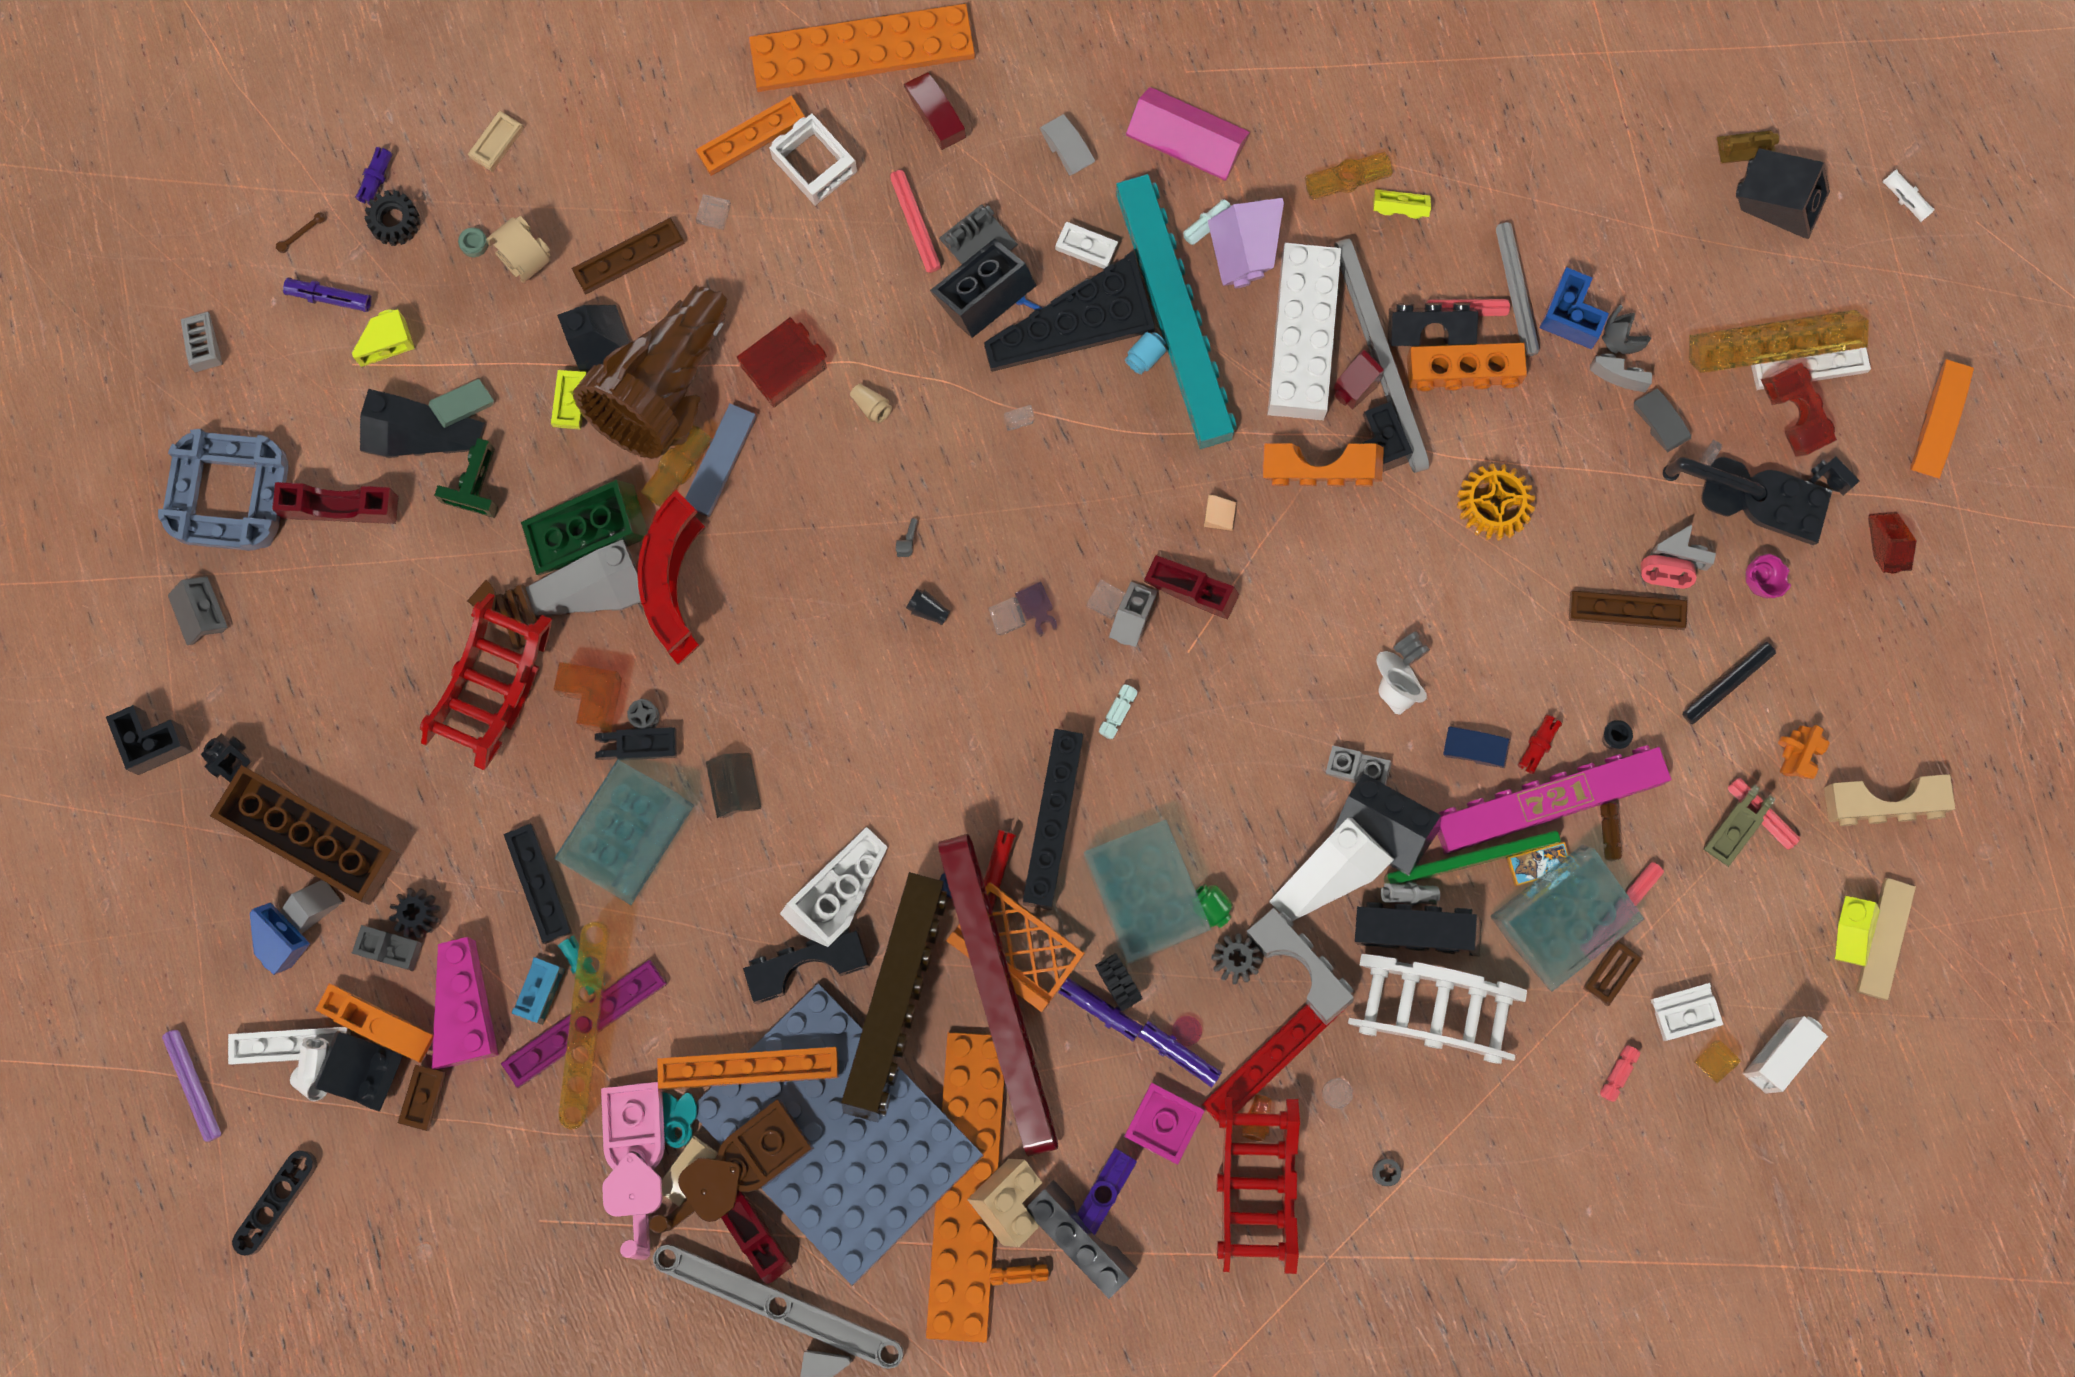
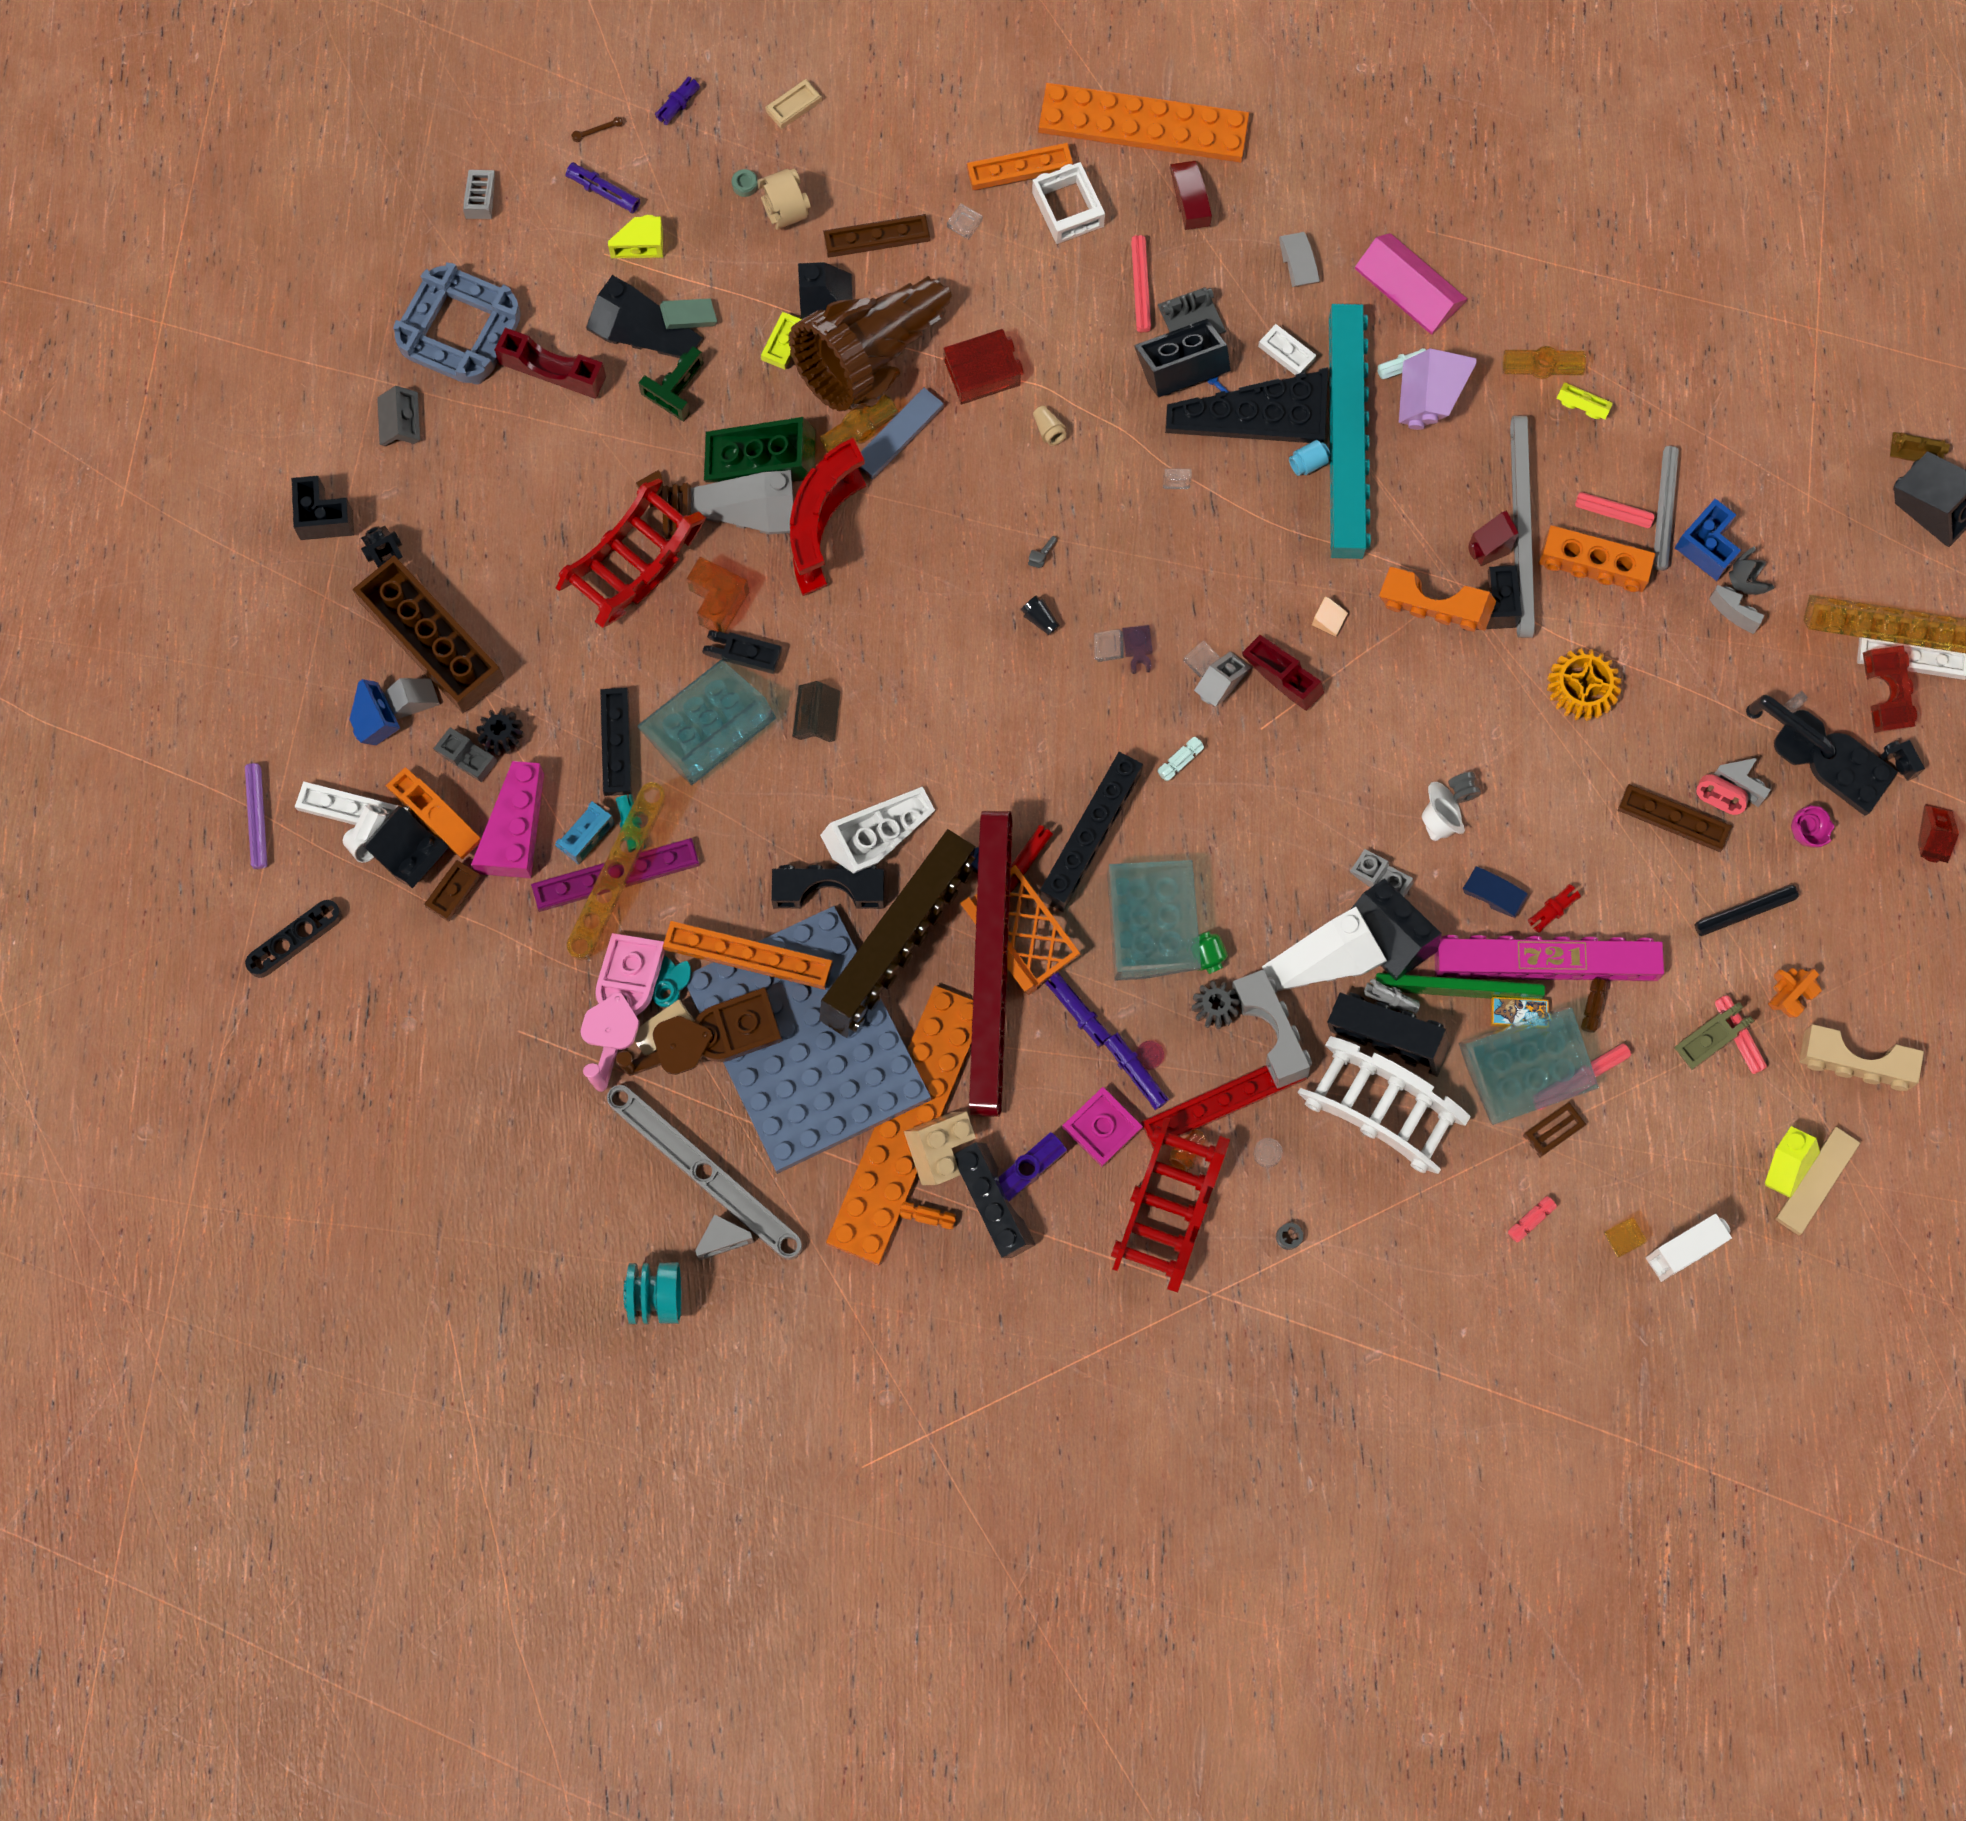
camera: 15 degrees right, 5 degrees down
(381, 207) = (676, 128): black tyre -> none
(641, 709) = (756, 622): dark grey wheel -> none
(756, 1240) = (703, 1107): dark red slope -> none
(1118, 982) = (1102, 988): black tyre -> none
(1304, 331) = (1458, 483): white brick -> none
(1407, 323) = (1554, 504): black arch -> none
(1621, 731) = (1626, 919): black cone -> none
(1663, 419) = (1761, 662): dark grey slope -> none
(1686, 1012) = (1611, 1184): white plate -> none

